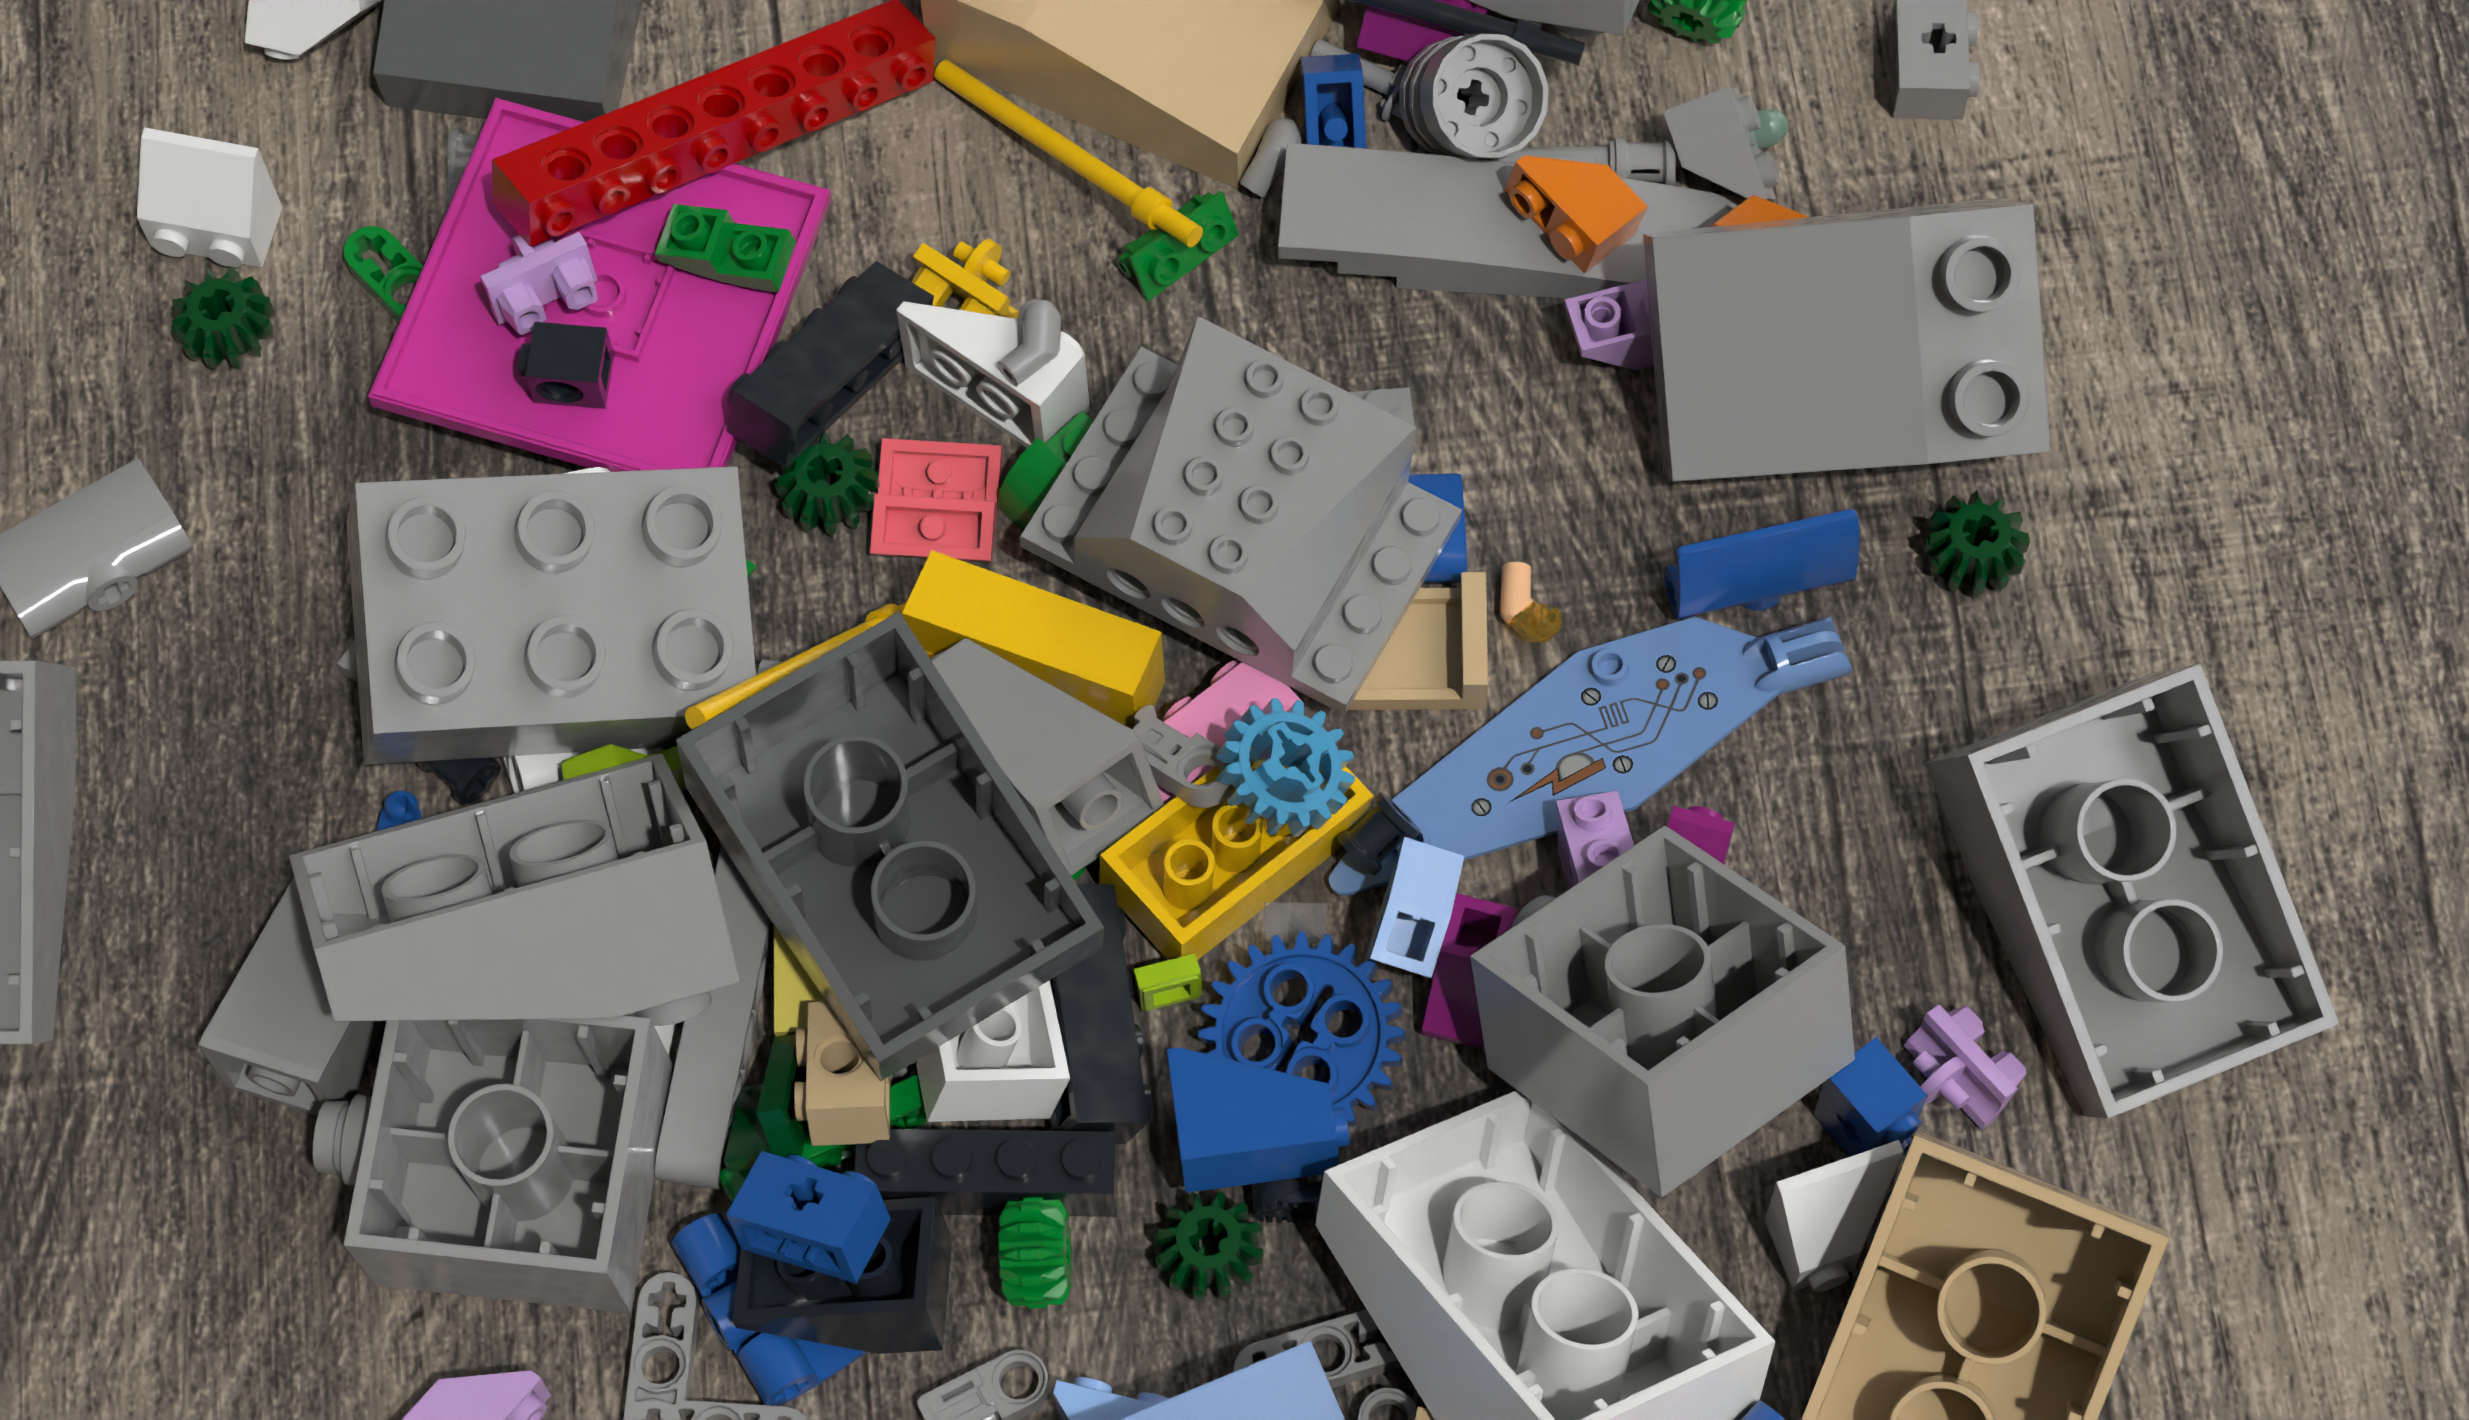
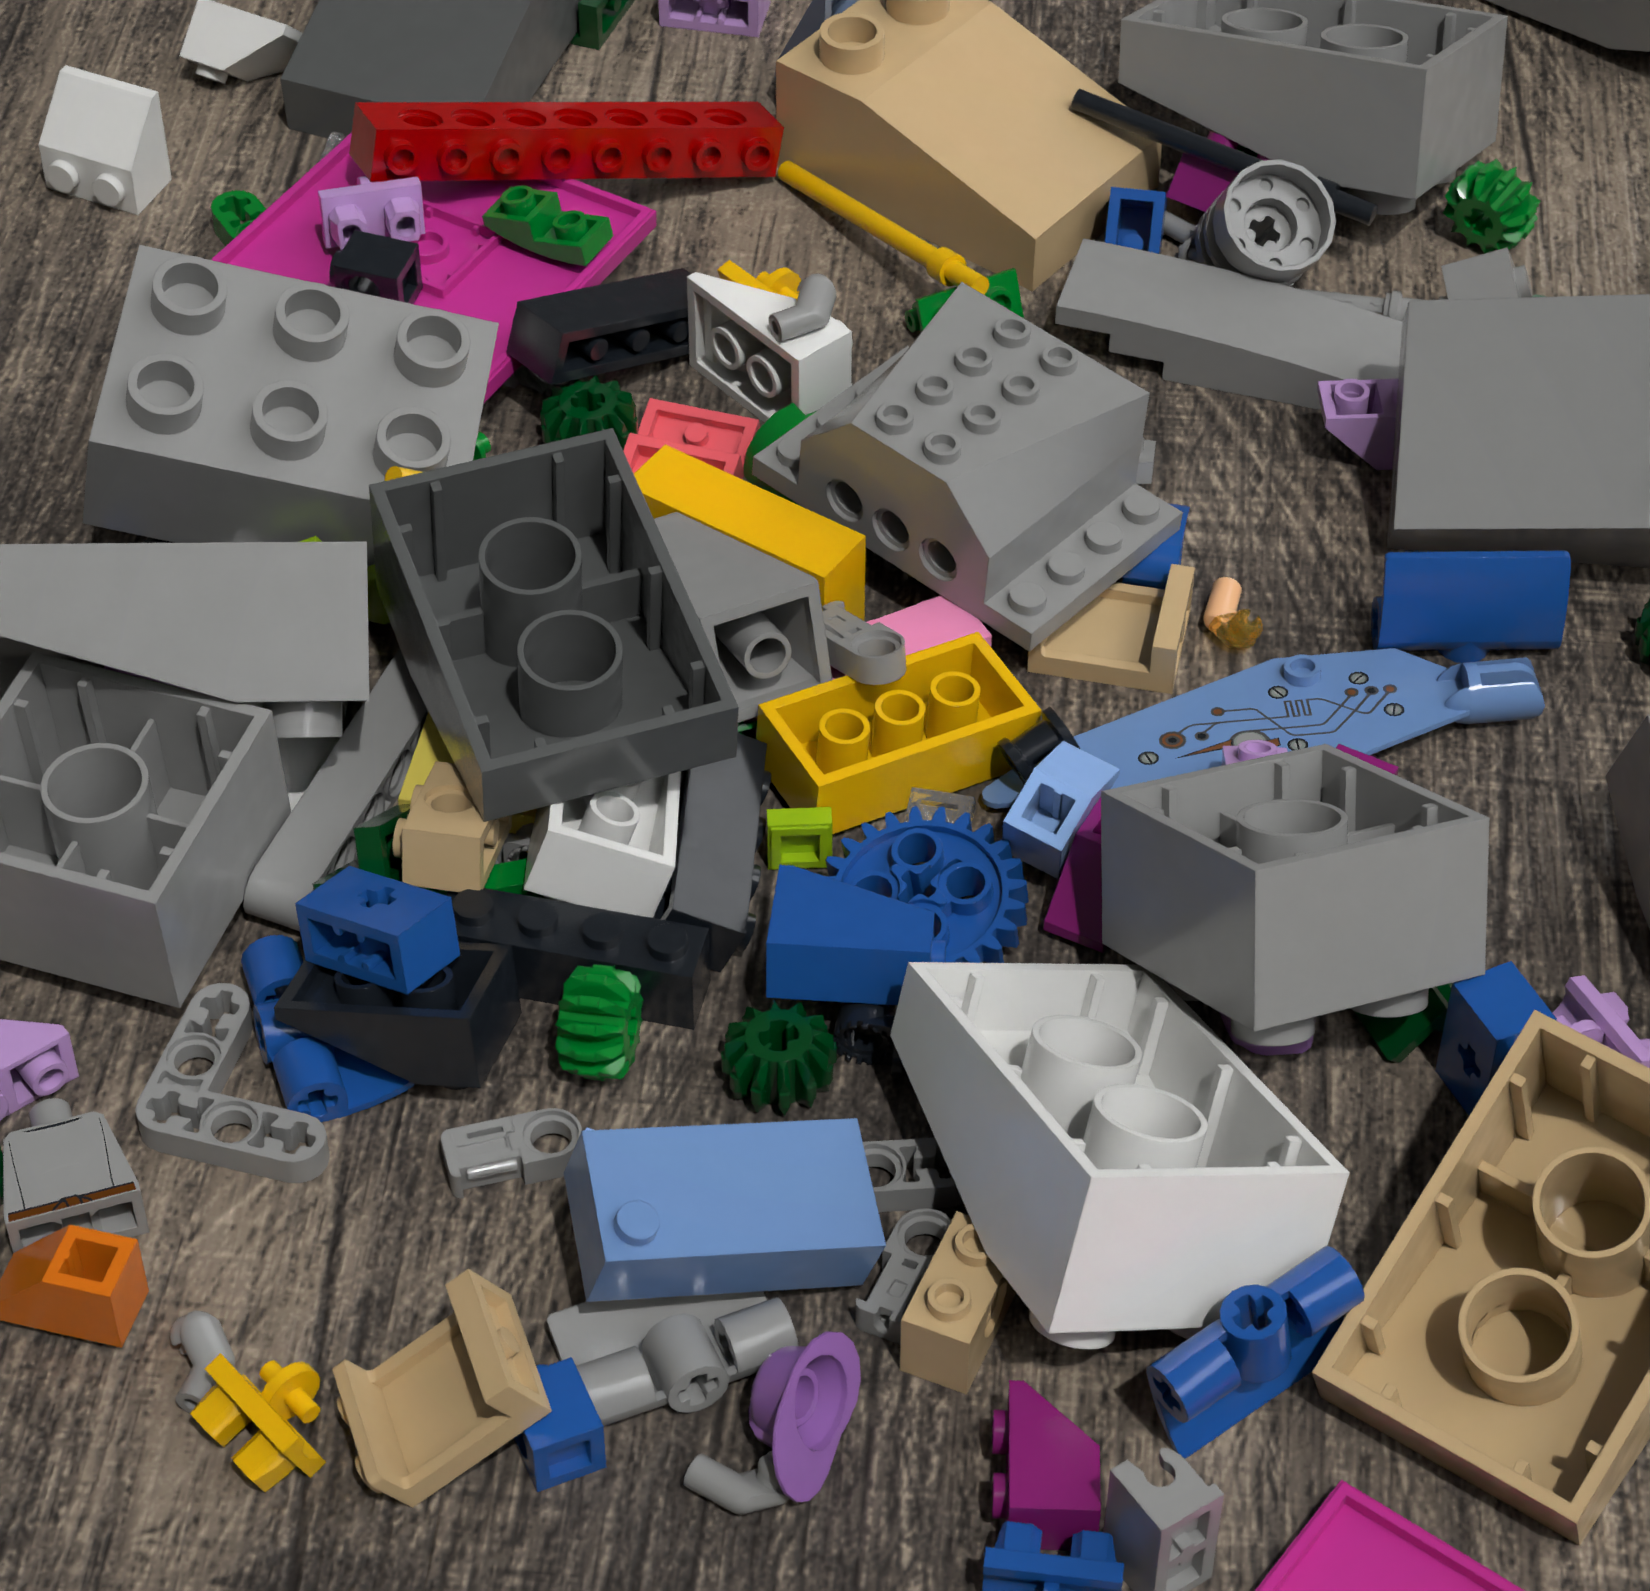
camera: 10 degrees right, 20 degrees down
(222, 318) = (87, 231): dark green gear -> none
(1271, 155) = (1056, 272): light grey arm -> none
(1282, 793) = (958, 656): dark azure gear -> none
(1577, 205) = (1344, 315): orange slope -> none
(1828, 1214) = (1417, 1118): white slope -> none

